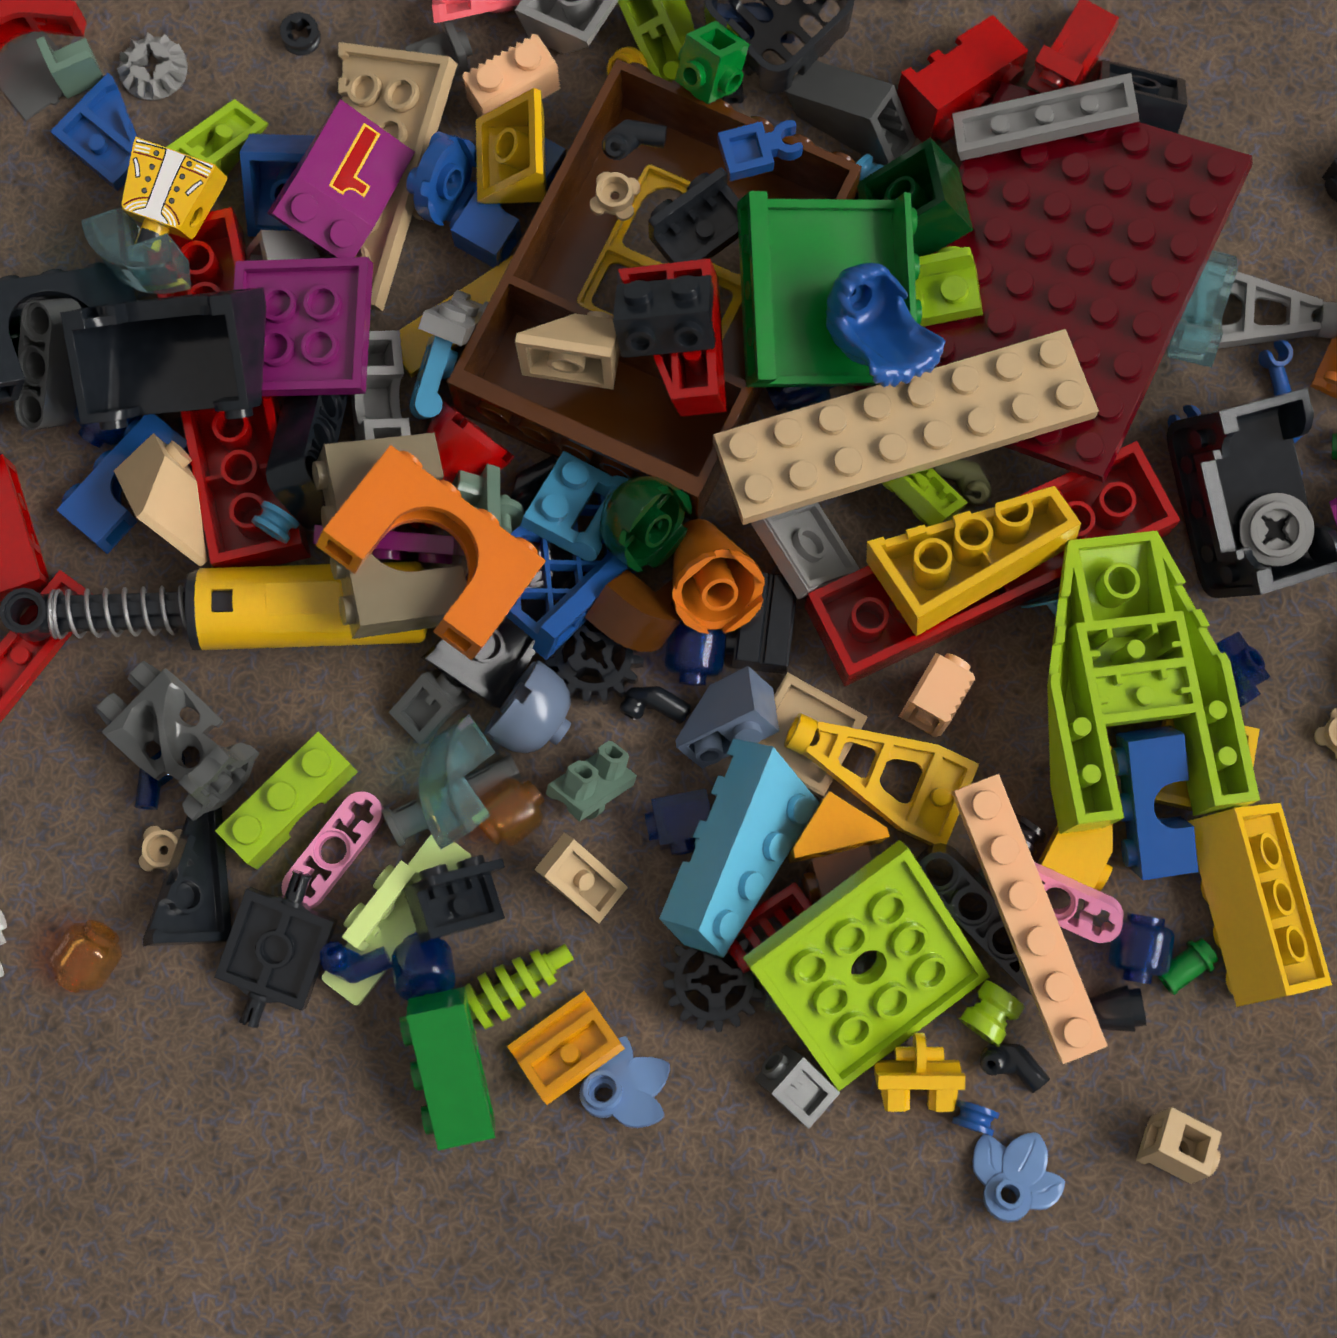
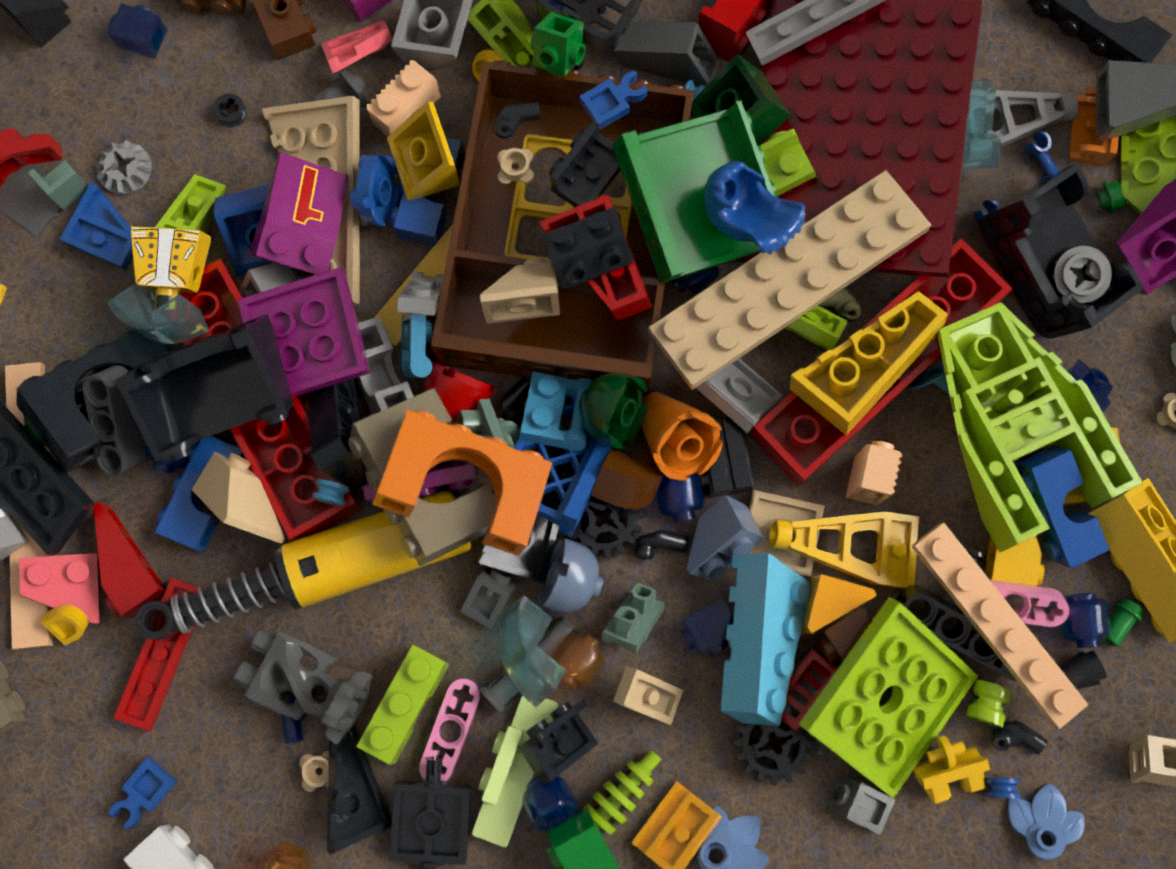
camera: 15 degrees left, 0 degrees up
(352, 966) = (494, 818): clear blue arm -> none

